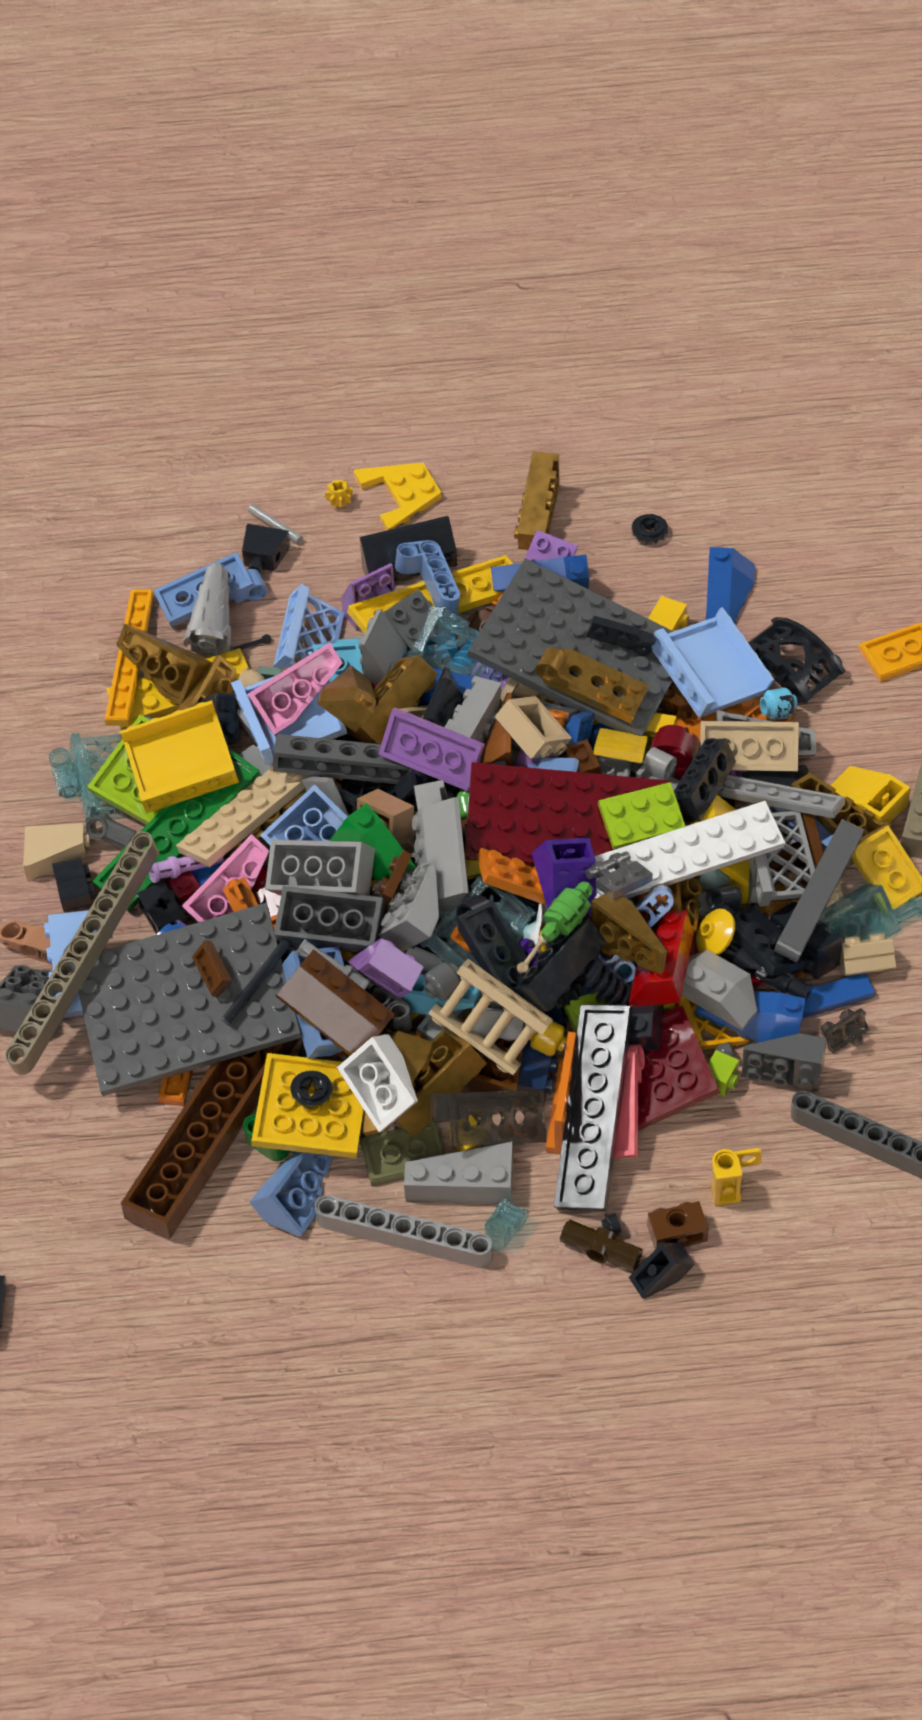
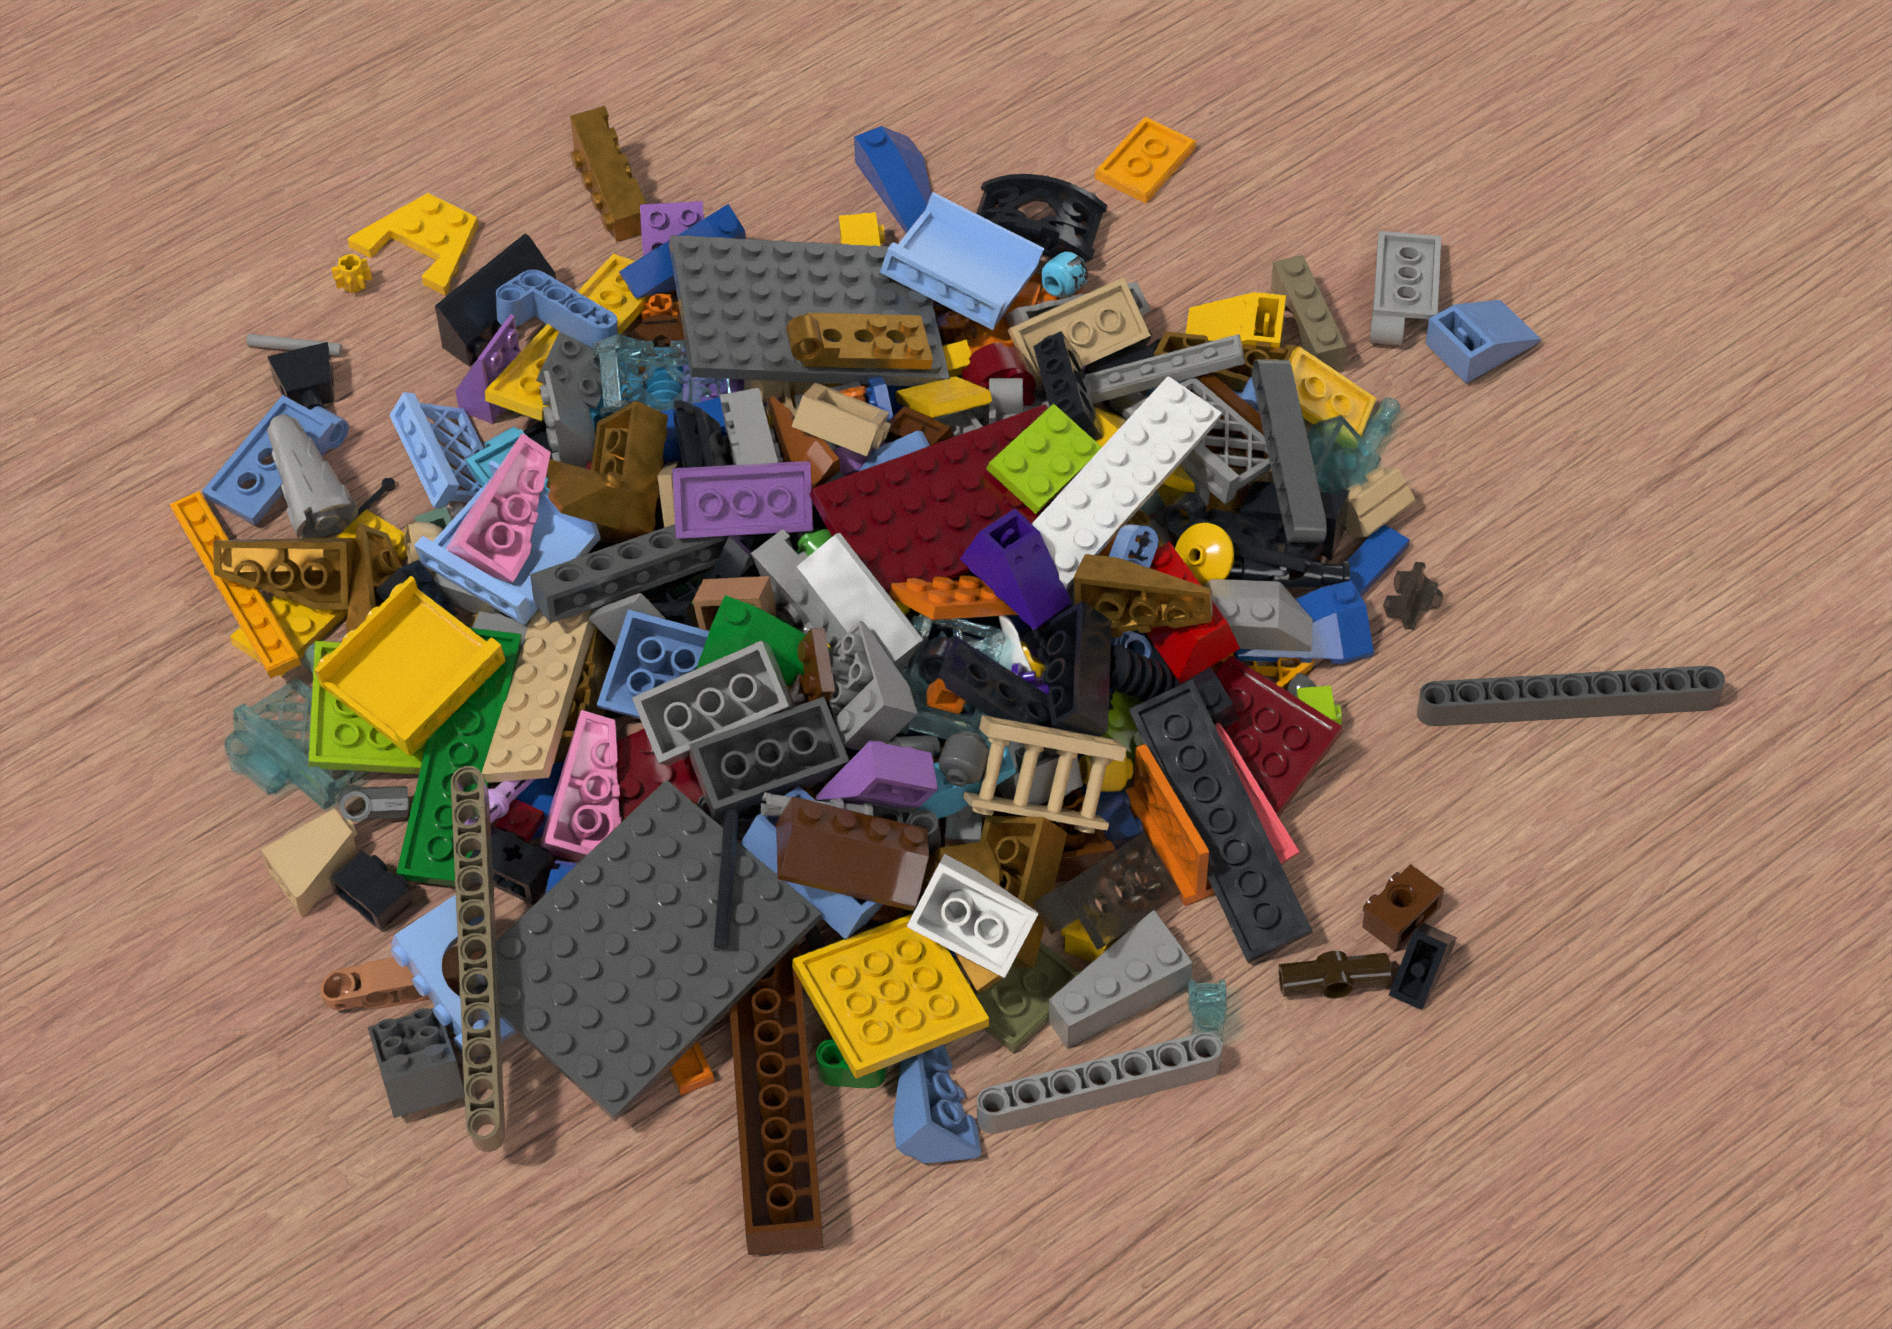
camera: 35 degrees left, 0 degrees up
(211, 968) = (661, 890): reddish brown plate -> none
(239, 894) = (615, 794): orange hinge -> none
(301, 1084) = (887, 960): black gear -> none
(523, 966) = (1038, 697): tan hinge -> none
(567, 911) = (1052, 604): bright green piece -> none
(611, 1222) = (1326, 942): black plate -> none
(621, 635) = (848, 273): black hinge -> none
(622, 880) = (1087, 535): flat silver plate -> none
(648, 522) = (750, 143): black gear -> none
(727, 1174) = (1420, 819): yellow piece -> none
(786, 1061) = (1388, 659): dark grey slope -> none

